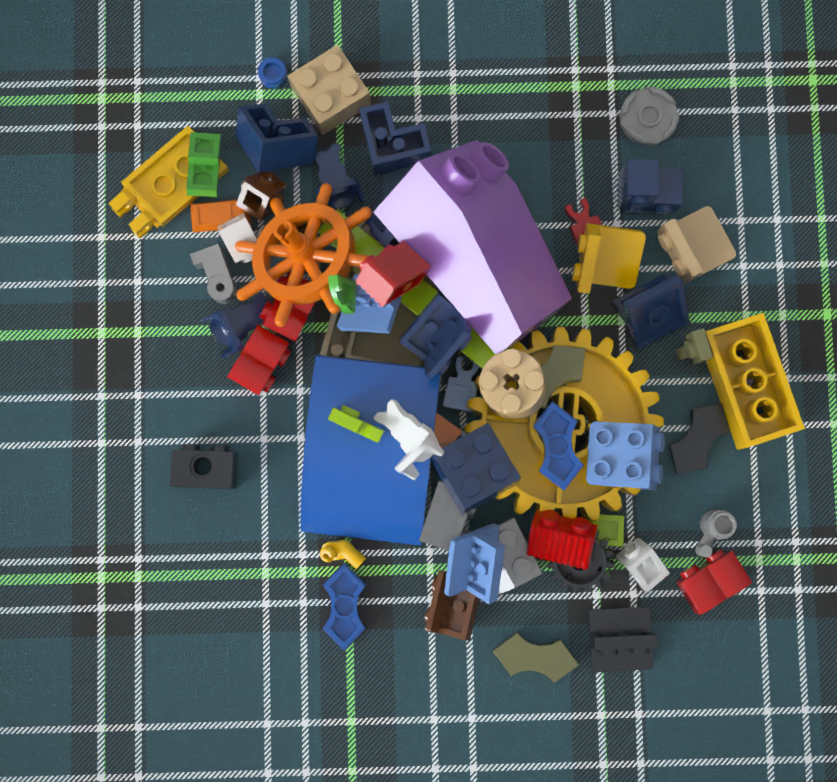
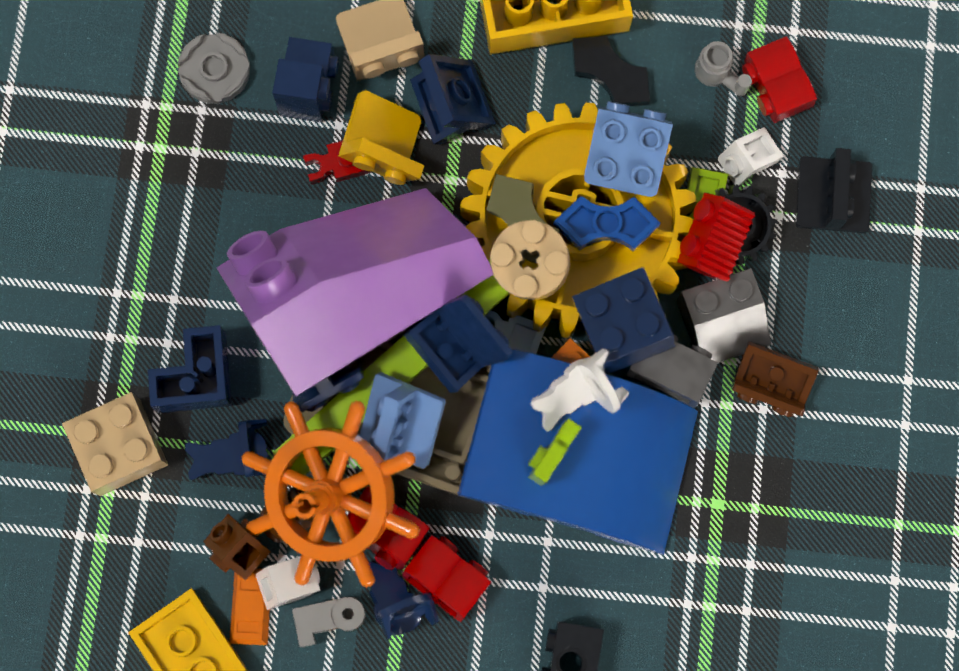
camera: 85 degrees left, 5 degrees down
(203, 164) = (185, 616): bright green slope -> none
(272, 72) = (77, 516): blue tile -> none
(273, 142) = (173, 524): dark blue brick -> none
(341, 550) = (692, 507): yellow arm -> none
(343, 293) = (392, 444): bright green tile -> none
(344, 621) = (778, 515): blue tile -> none
(392, 273) = (378, 380): red brick -> none
(476, 564) = (734, 337): medium blue bracket -> none
(549, 659) = (841, 310): olive tile -> none
(695, 347) = (506, 54): olive plate -> none

